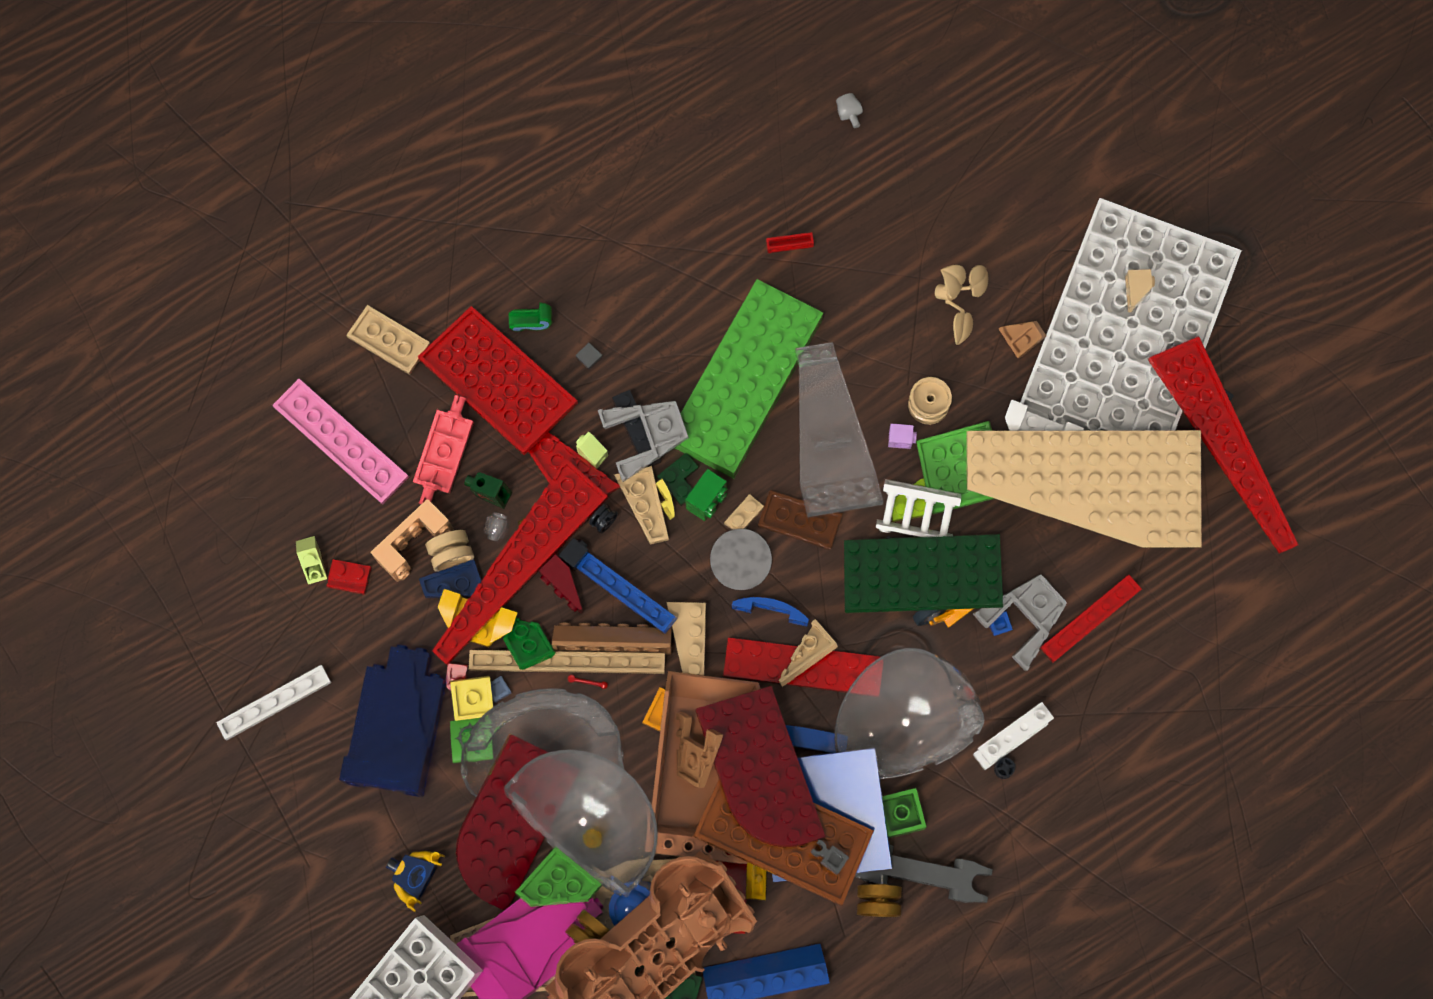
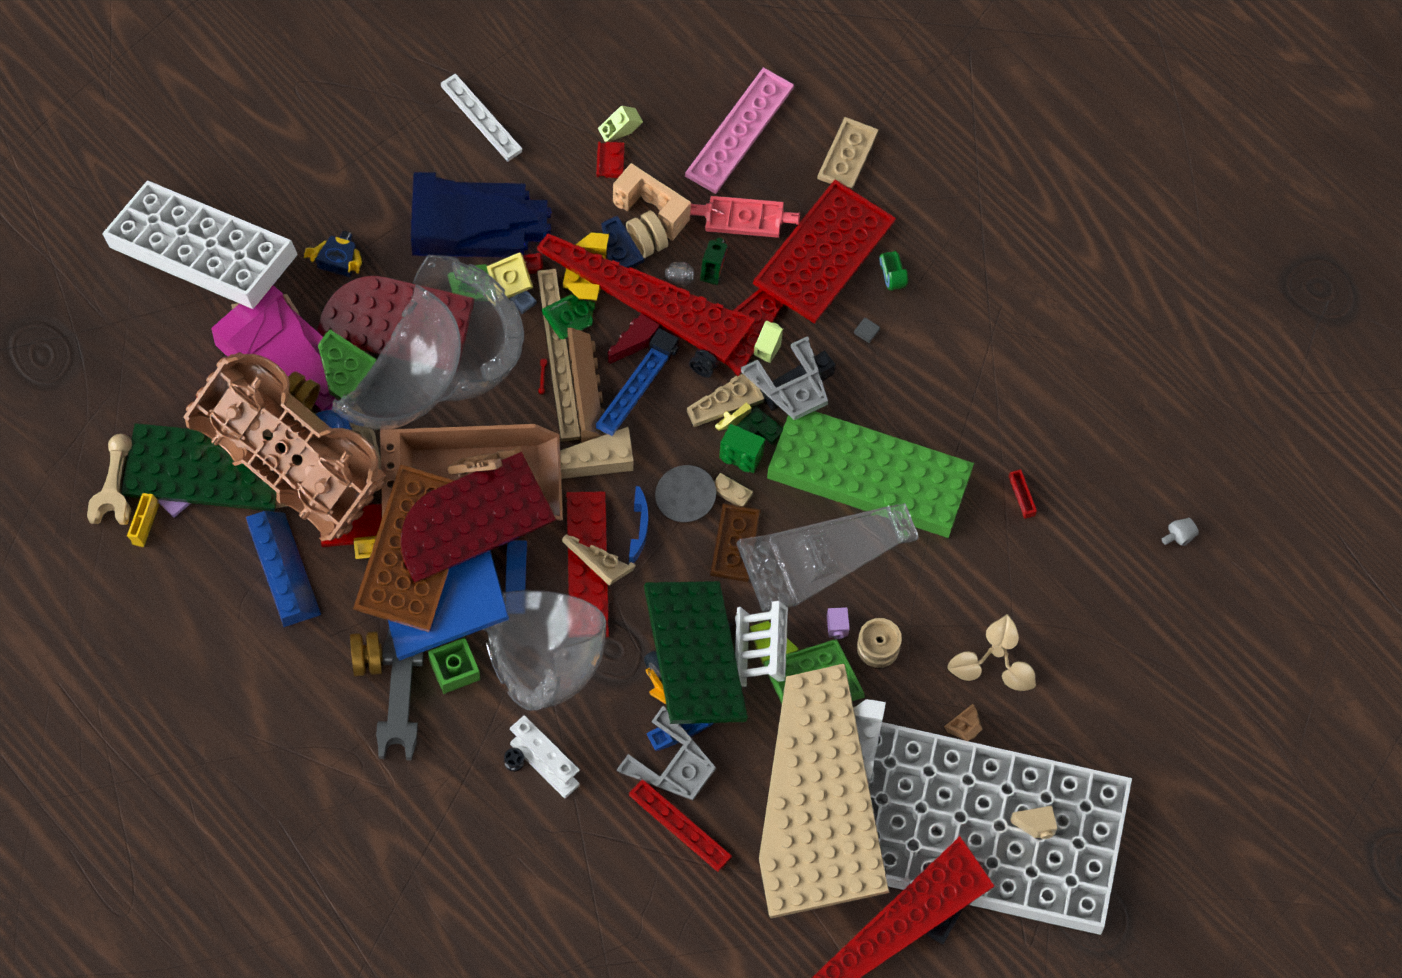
camera: 75 degrees right, 10 degrees down
(592, 843) = (389, 391): clear yellow plate -> none
(832, 858) = (395, 590): dark grey plate -> none

